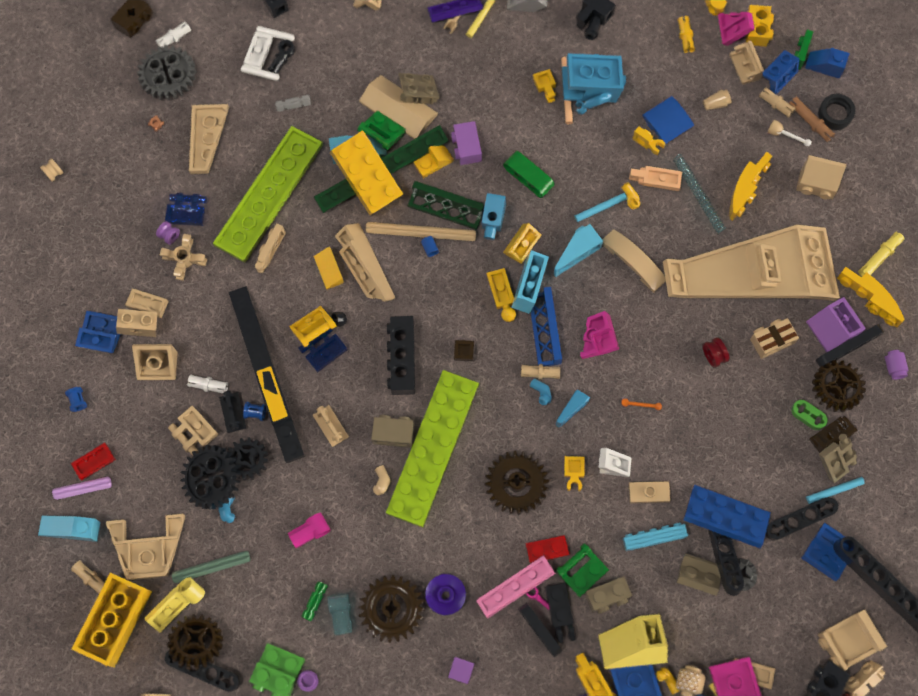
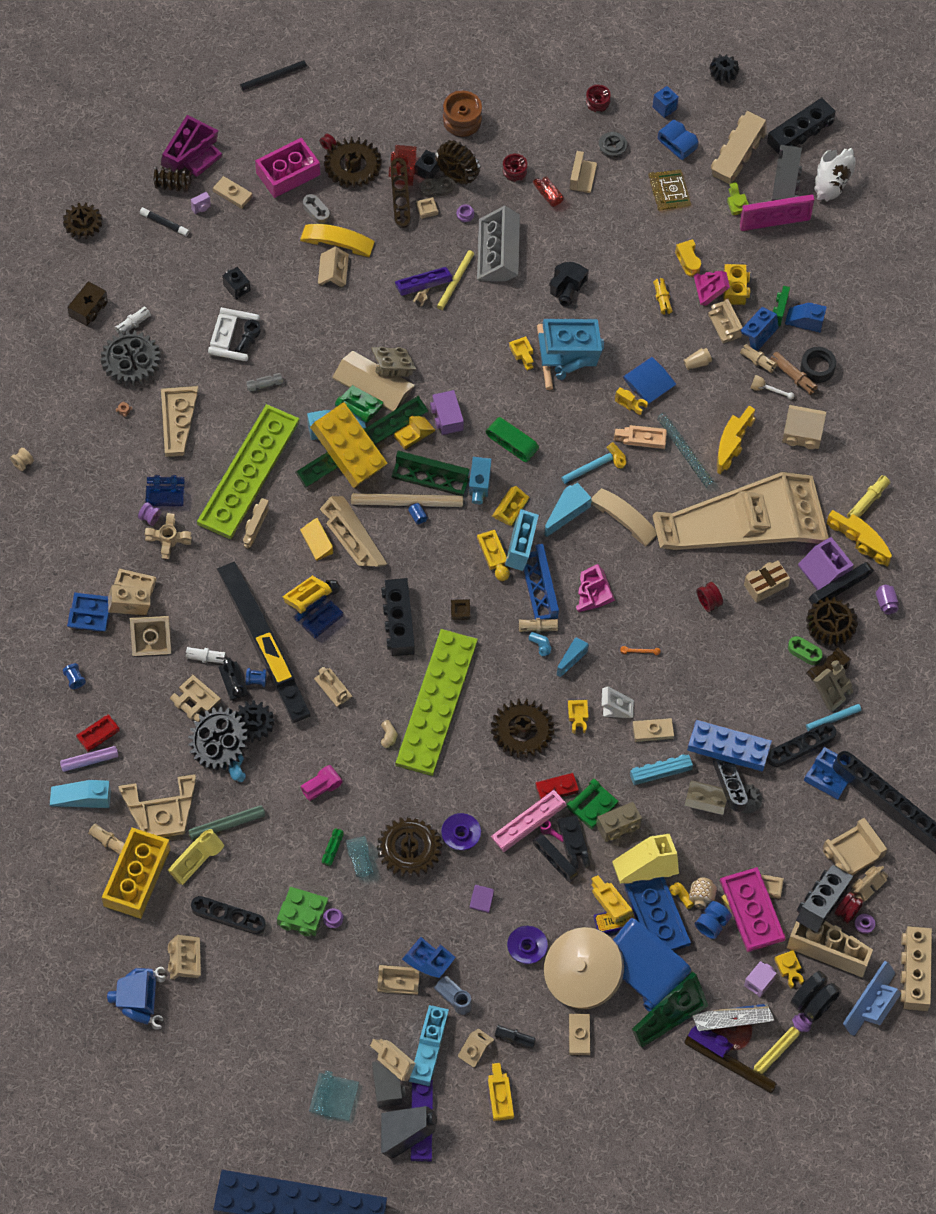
camera: 10 degrees left, 10 degrees down
(186, 628) = (220, 891): dark brown gear -> none
(392, 431) = (396, 687): dark tan brick -> none

